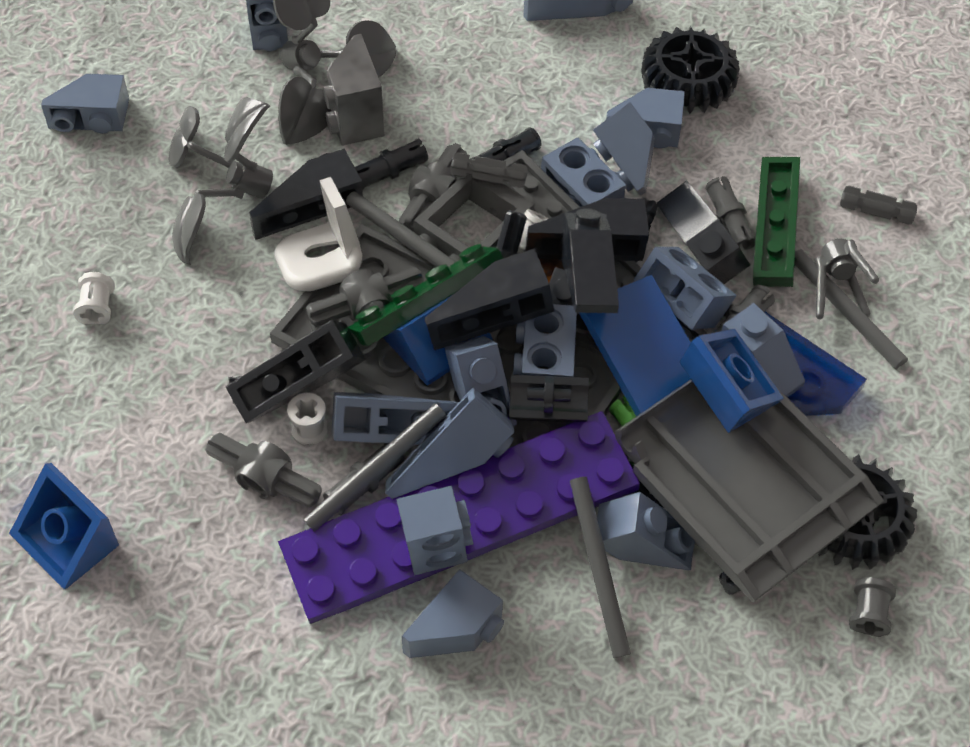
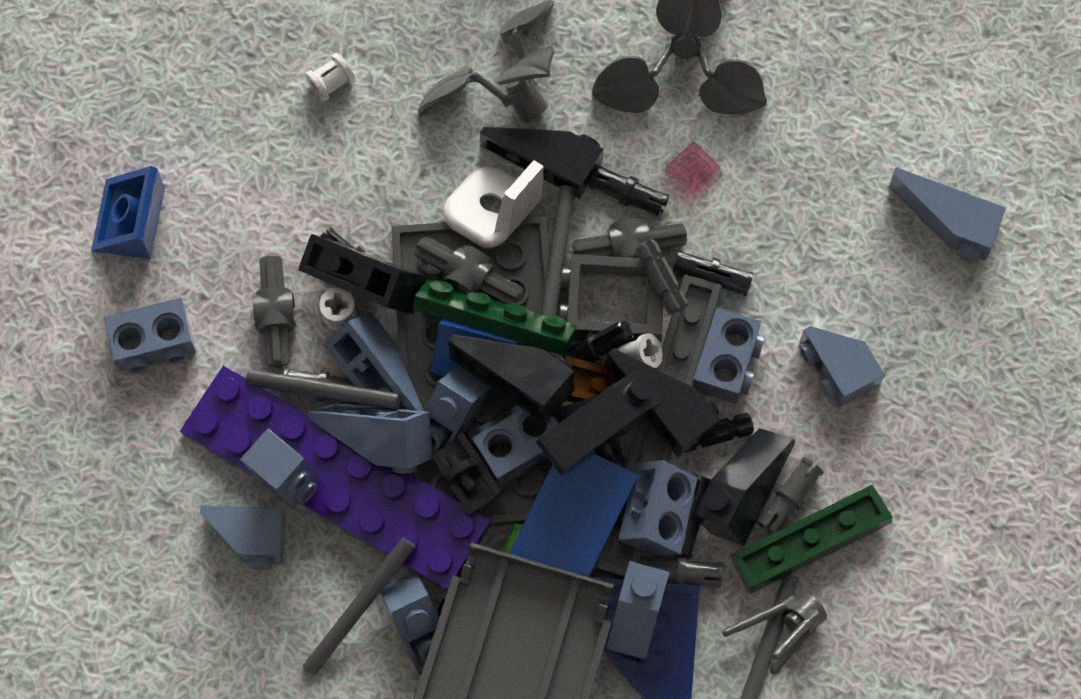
camera: 55 degrees right, 15 degrees up
(186, 582) = (149, 325): none -> sand blue brick
(354, 95) = (666, 113): flat silver slope -> none
(406, 117) = (693, 168): none -> clear pink tile
(630, 145) = (782, 370): sand blue slope -> none
(692, 64) = (939, 375): black gear -> none
(729, 378) = (574, 599): blue slope -> none
(878, 204) = (901, 614): dark grey axle -> none

